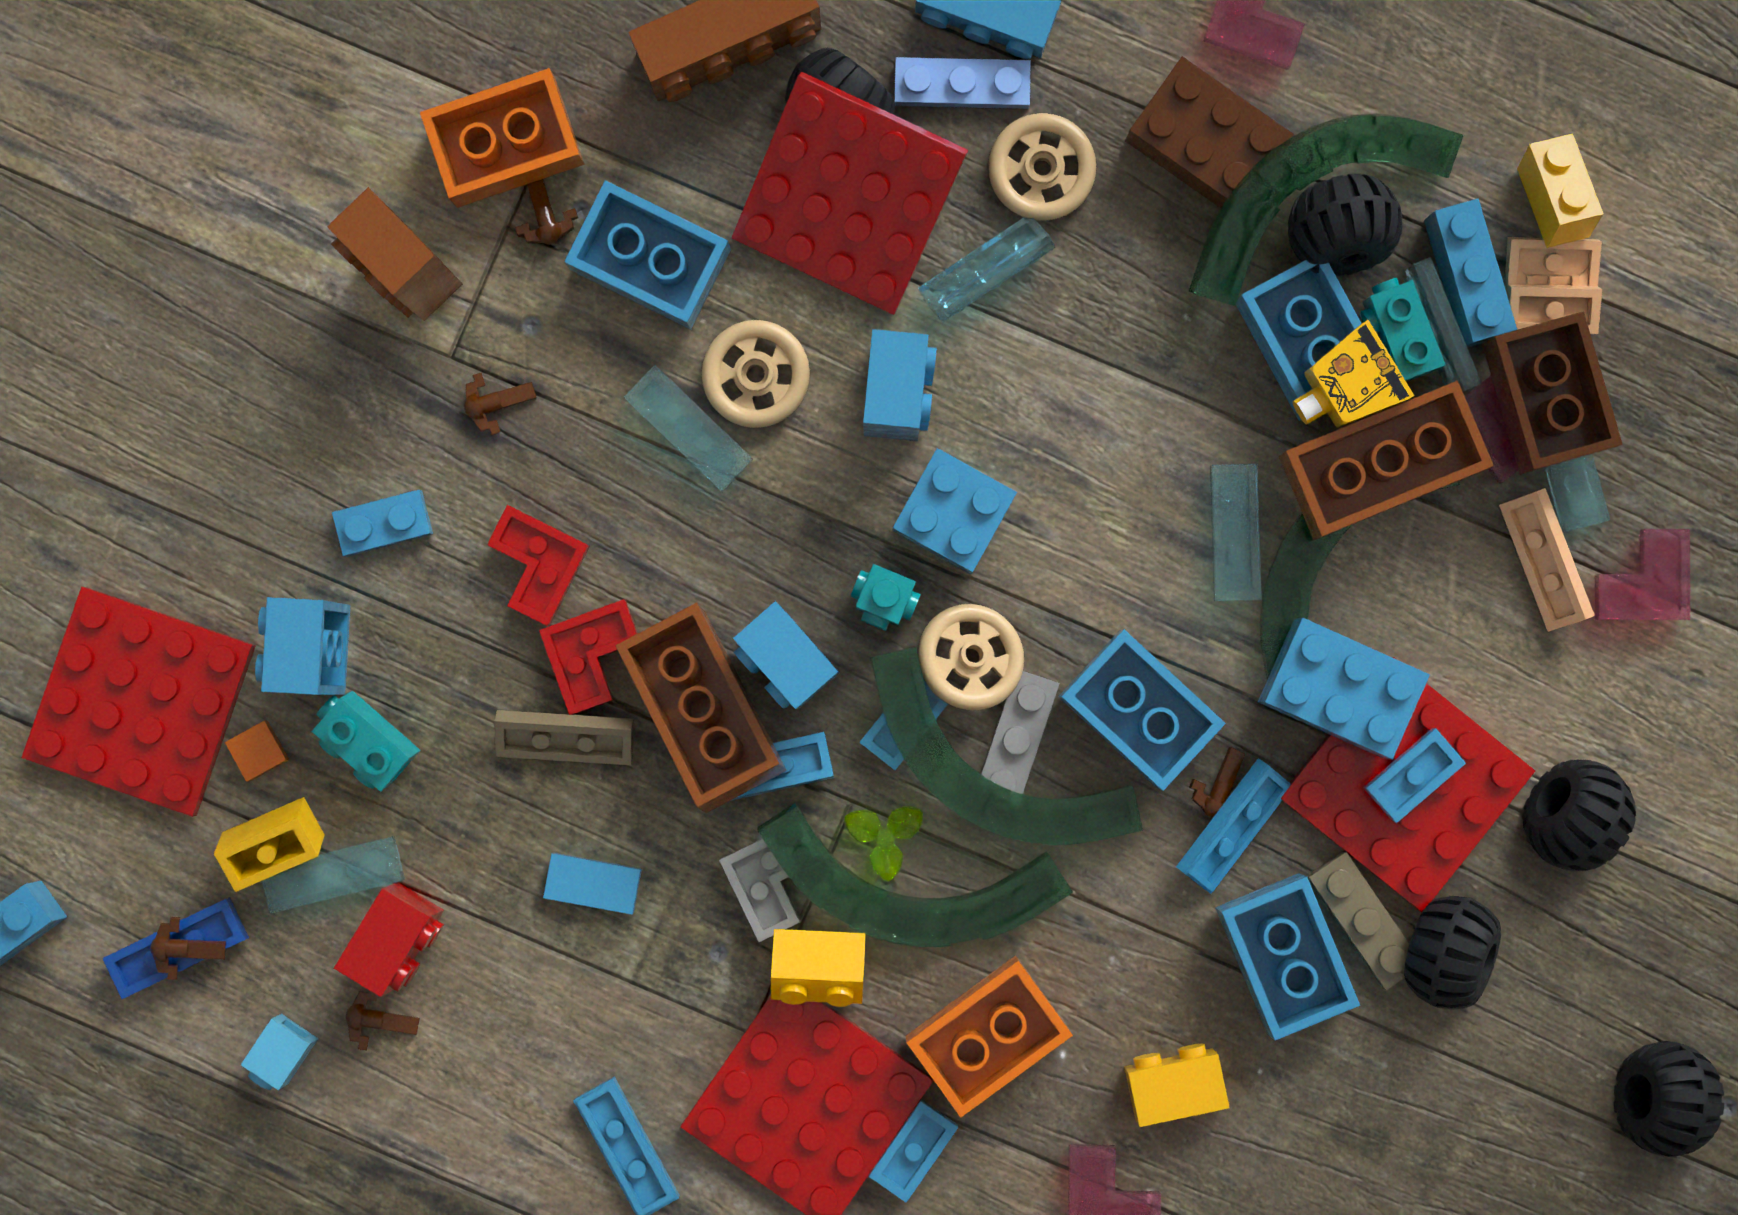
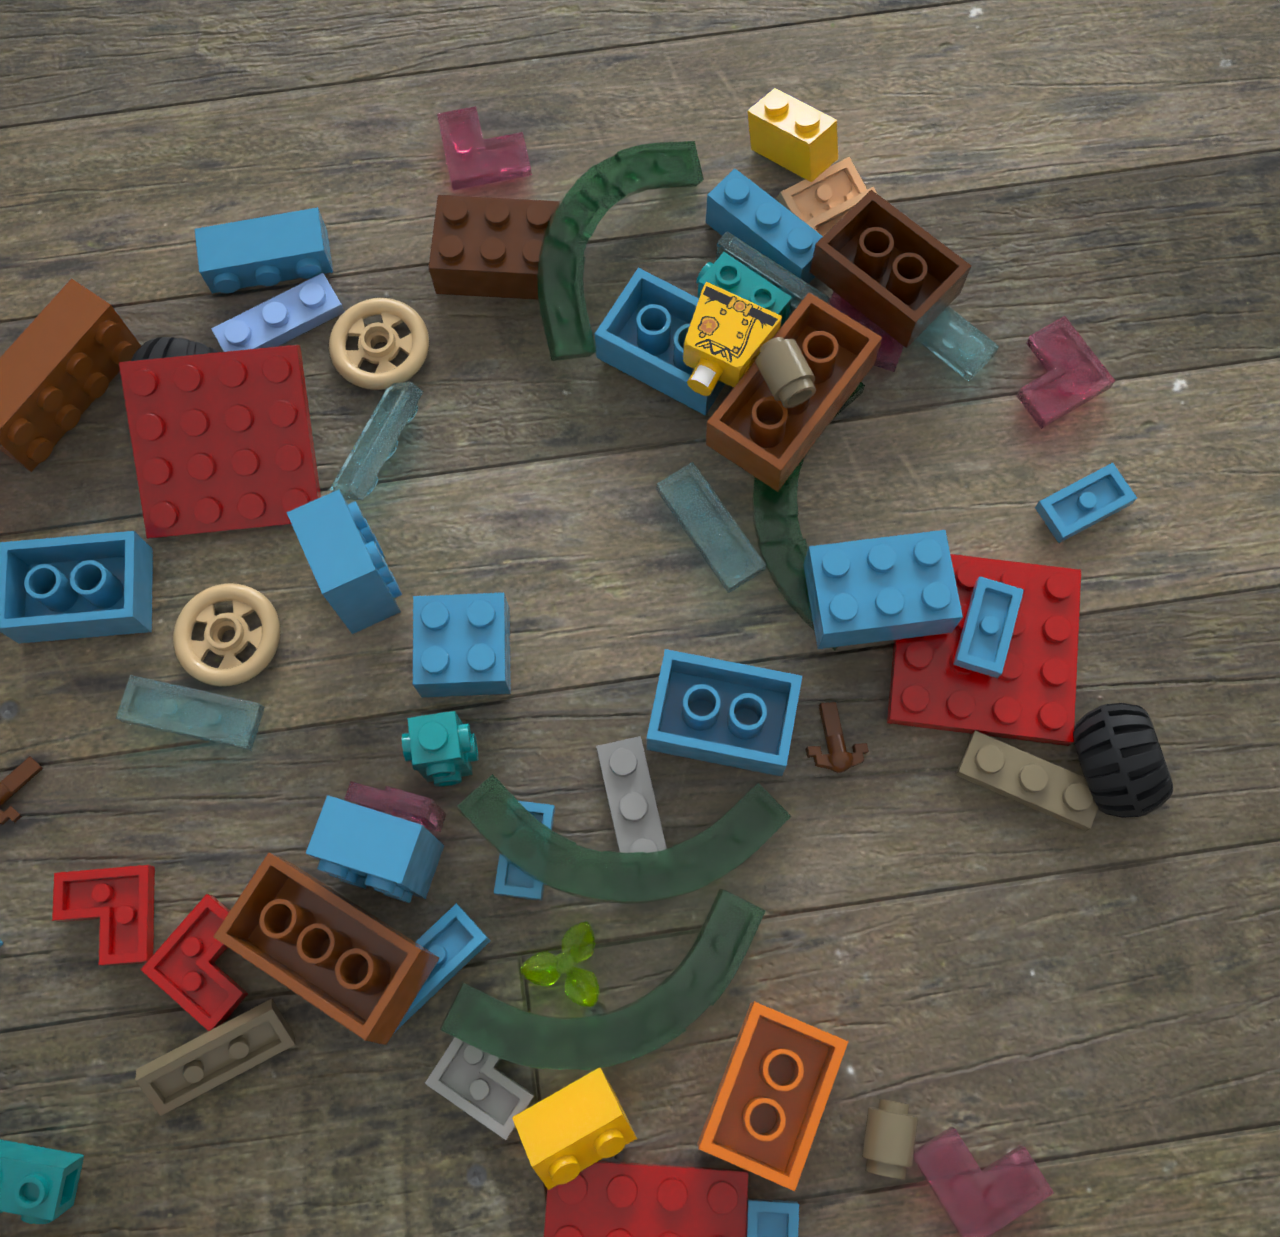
camera: 35 degrees left, 15 degrees down
(592, 883) = (317, 1183): dark azure tile -> none
(828, 635) = (398, 804): none -> clear pink plate
(936, 669) = (571, 787): tan plate -> none
(1059, 1124) = (889, 1139): none -> dark tan brick
(1176, 1085) = (970, 1032): yellow brick -> none
(1234, 826) = (867, 767): dark azure tile -> none
(1287, 956) = (989, 850): dark azure brick -> none
(1345, 223) = (644, 236): black wheel -> none
(1382, 452) = (786, 371): none -> dark tan brick
(1546, 560) = (972, 403): light nougat plate -> none
(1579, 815) = (1142, 583): black wheel -> none
(1583, 713) = (1085, 502): none -> dark azure plate

